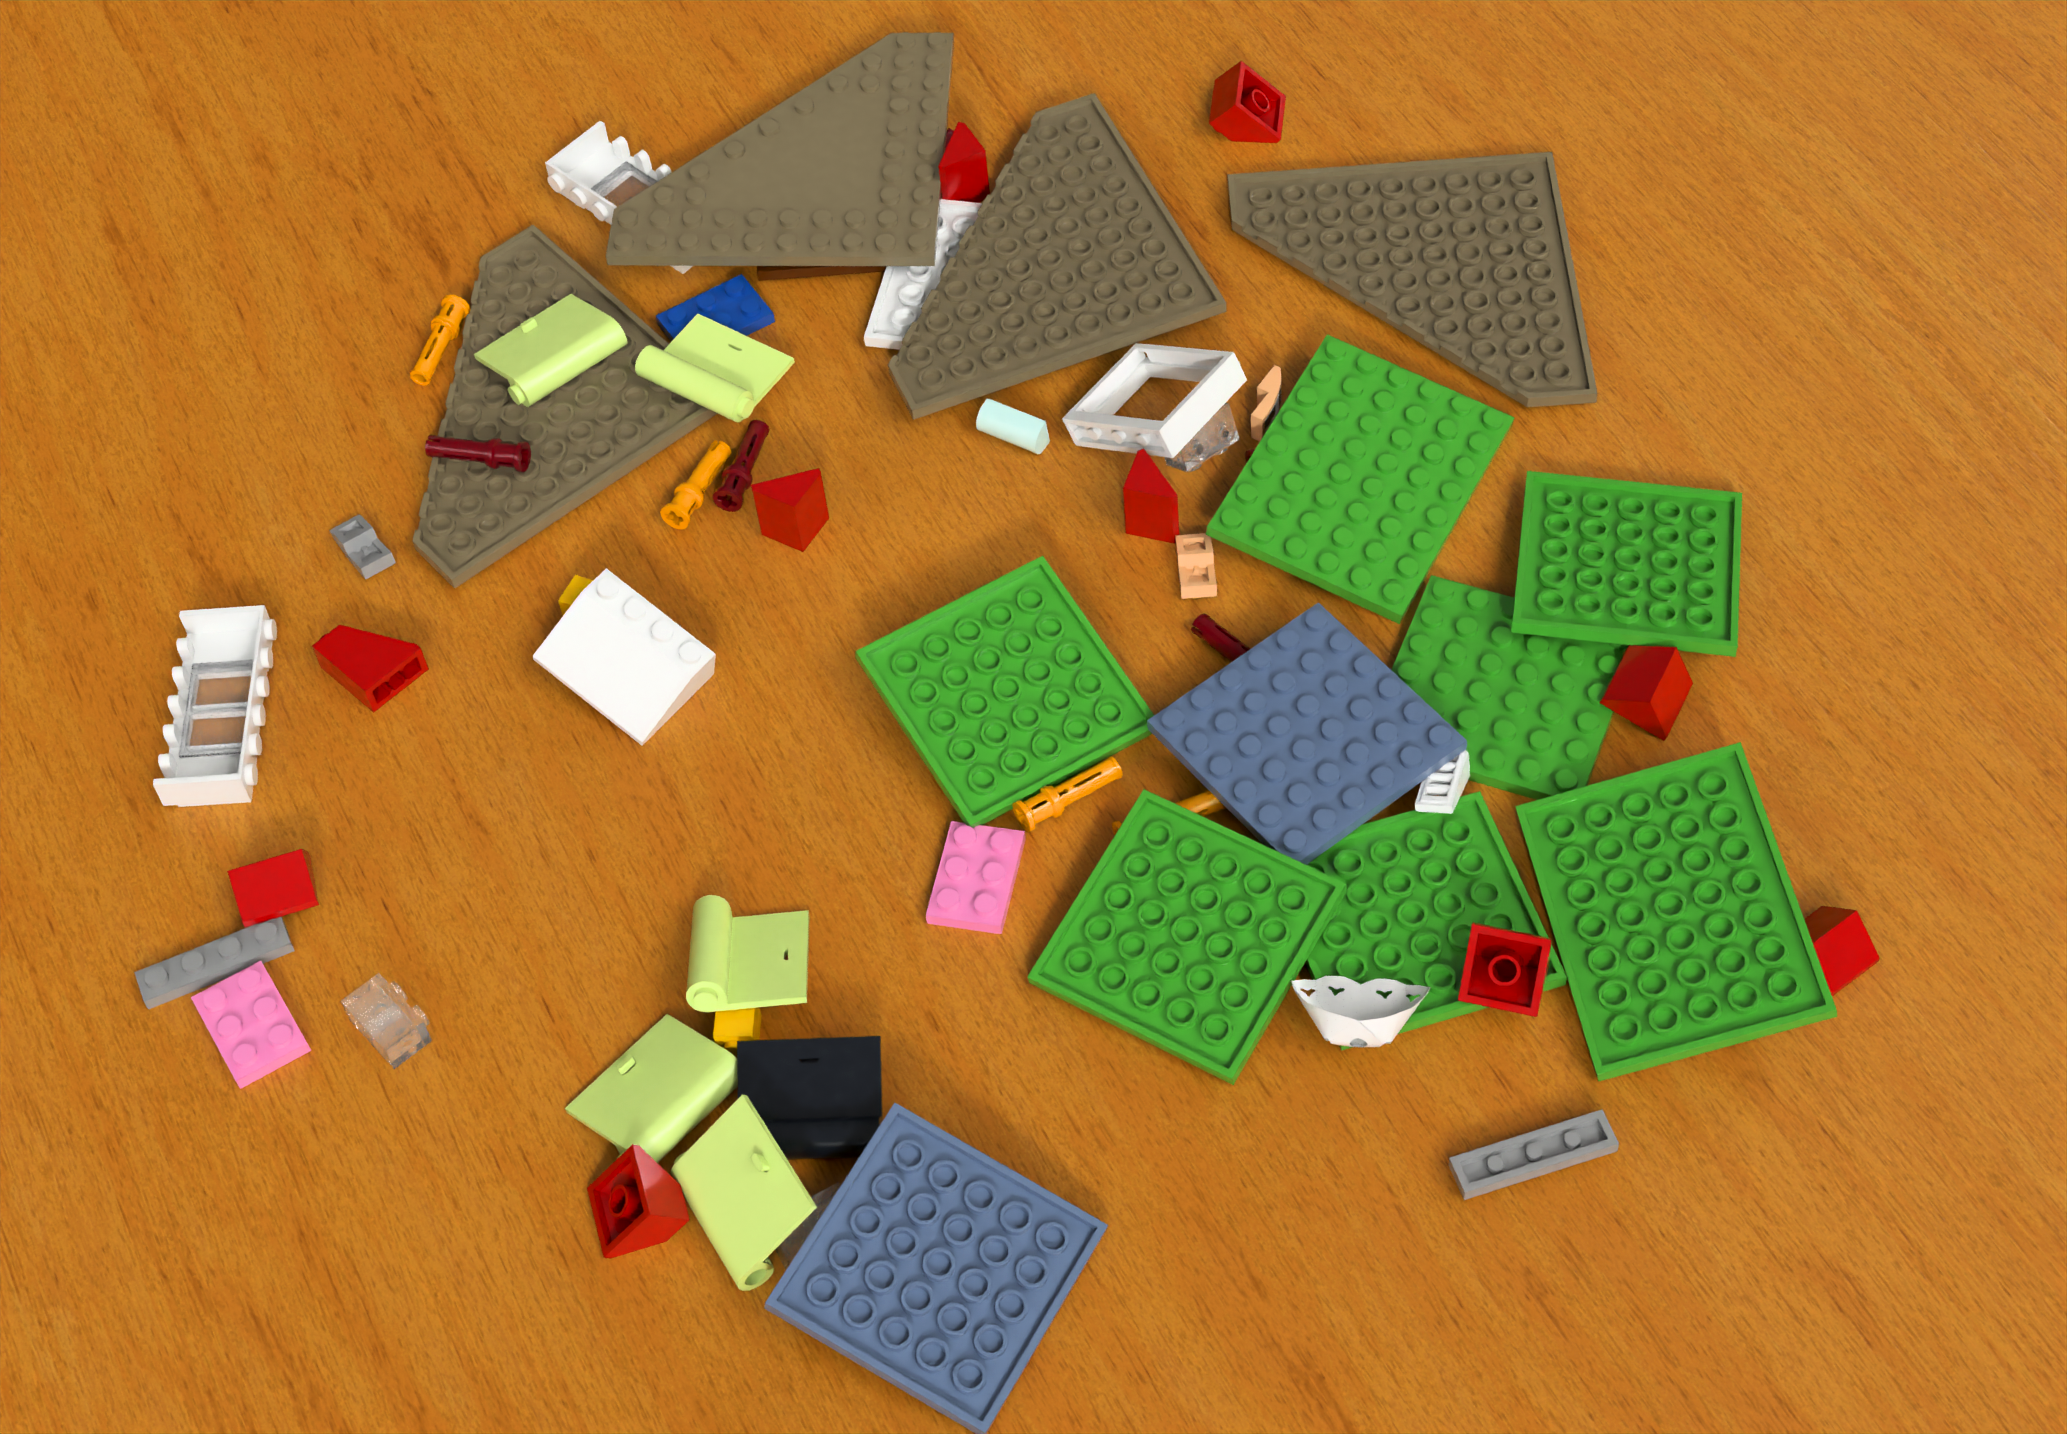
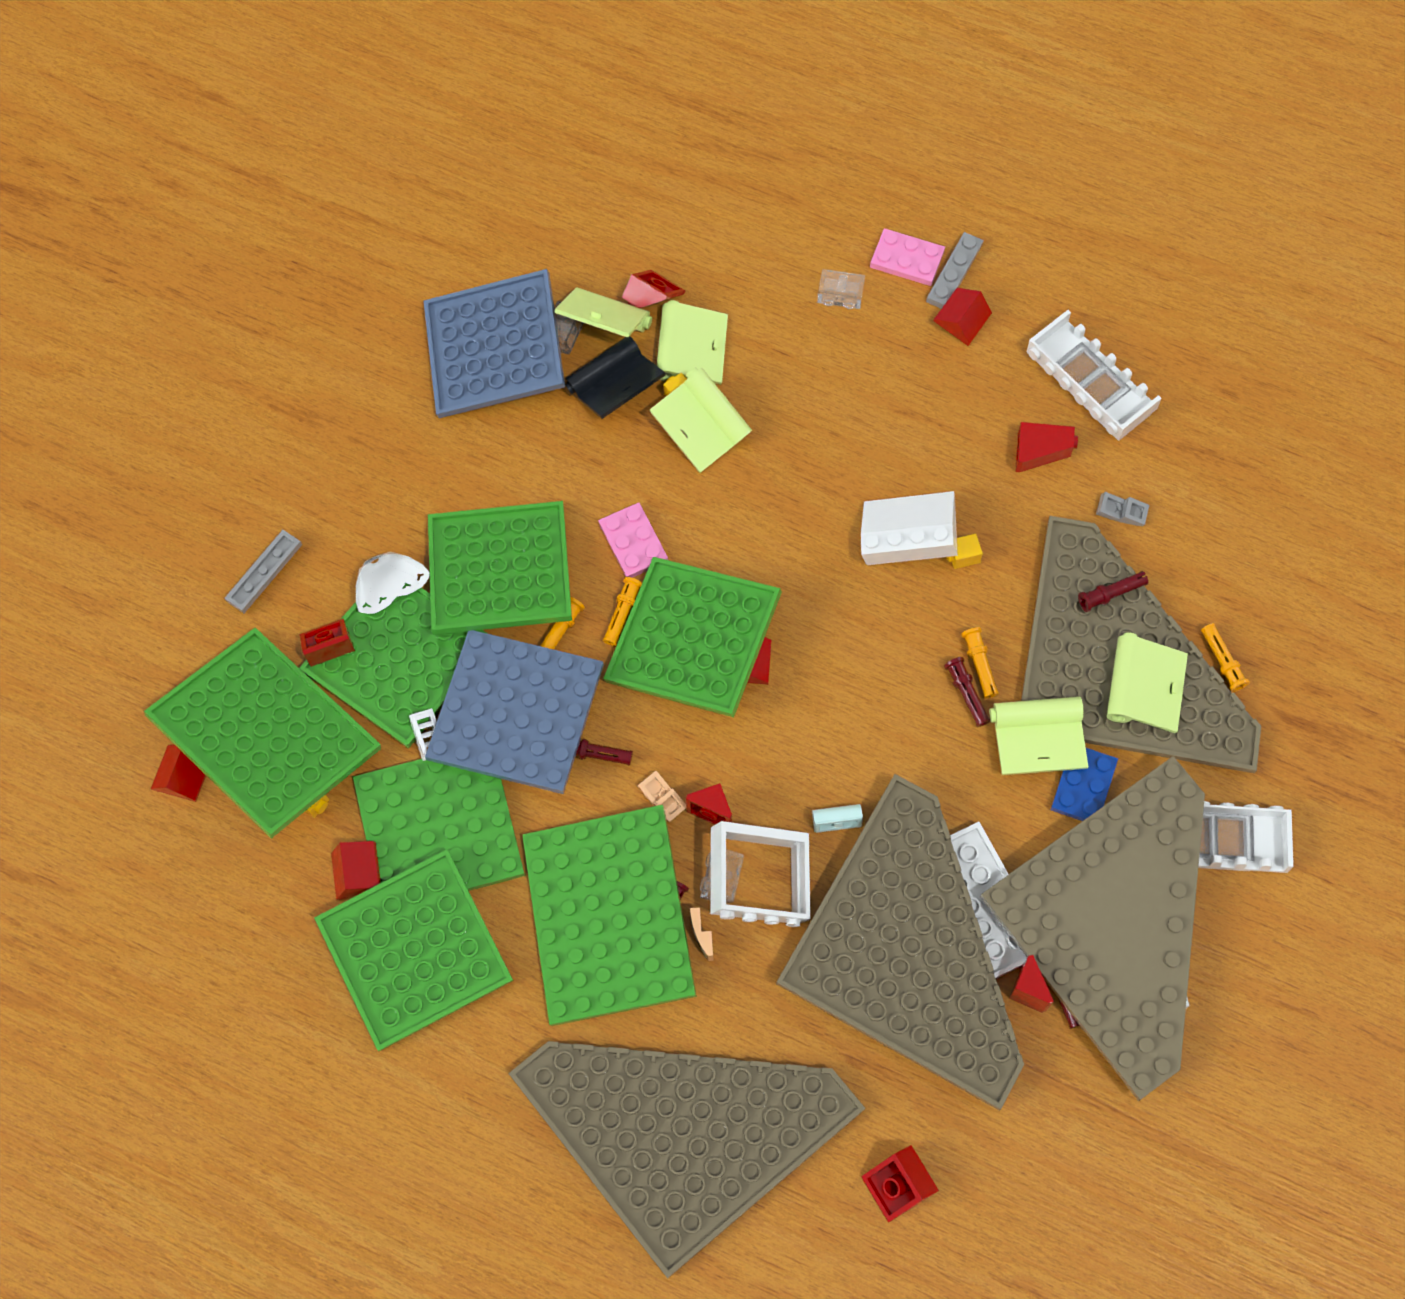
camera: 140 degrees right, 15 degrees up
(791, 508) = (904, 667): red slope -> none

